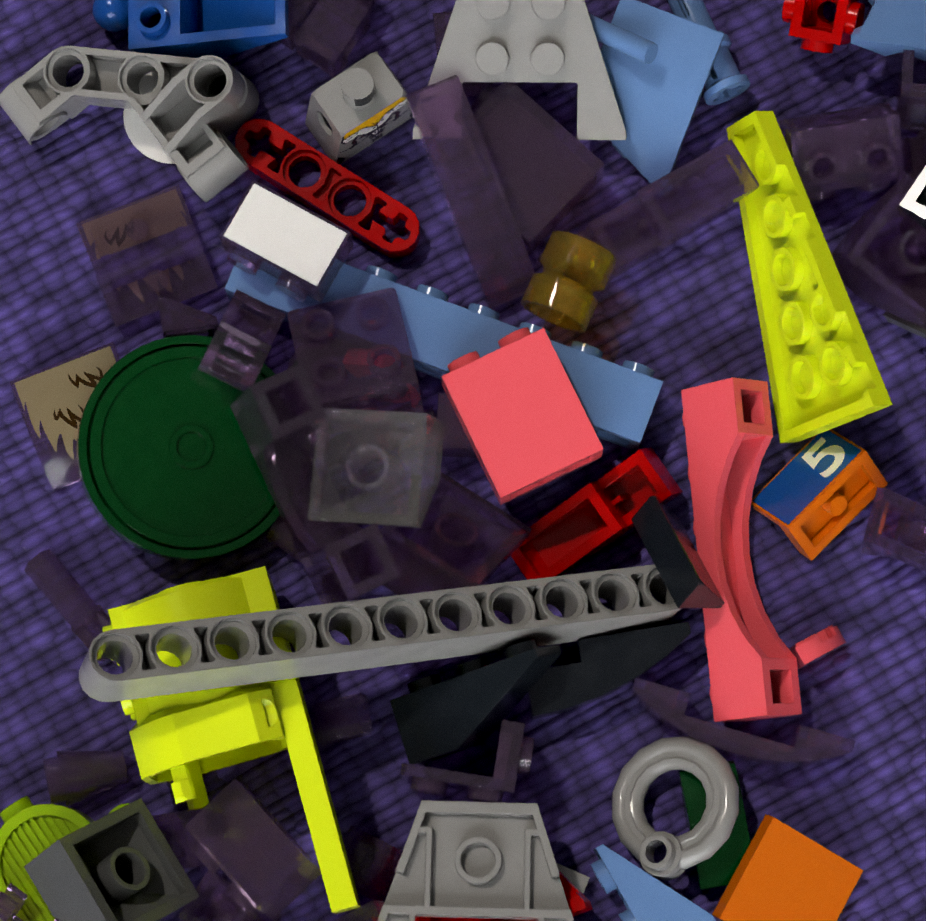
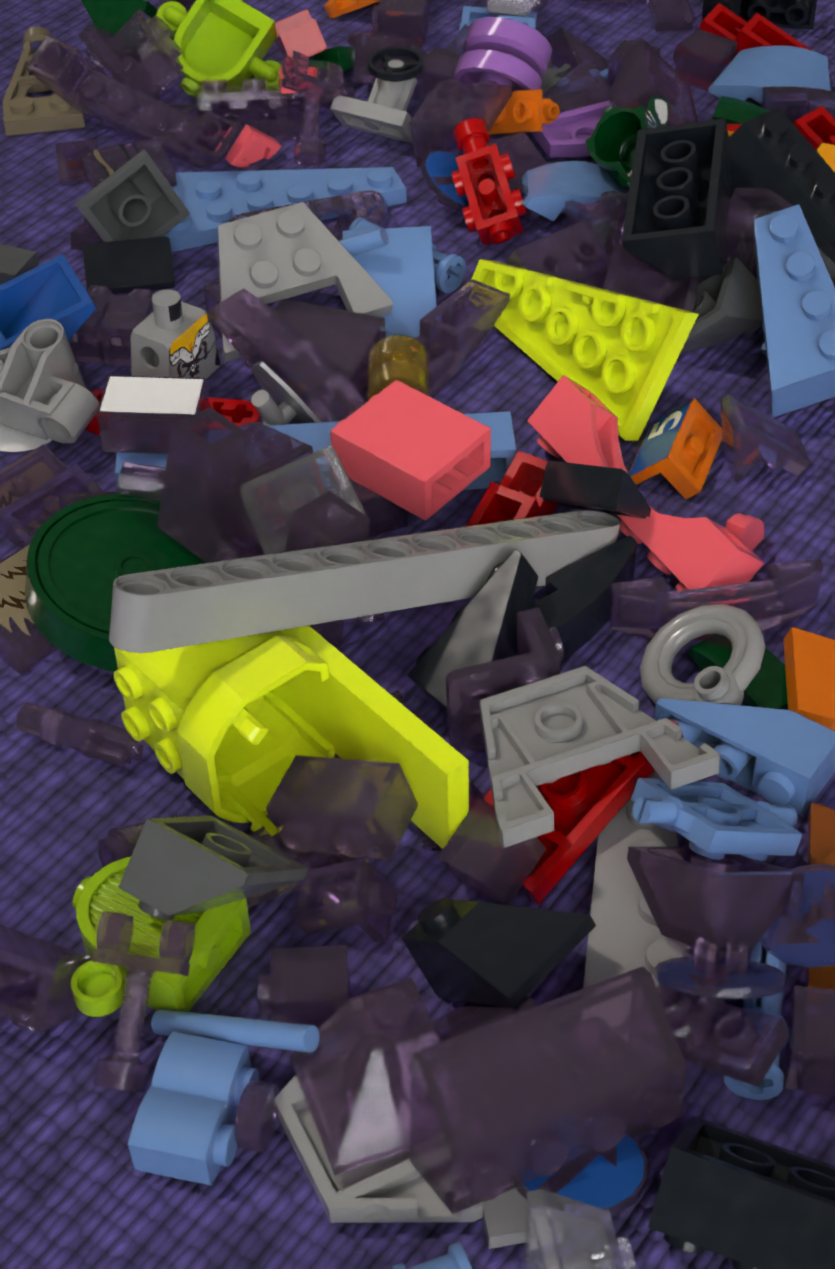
camera: 25 degrees left, 35 degrees down
(438, 248) = (277, 401): none -> light grey shield

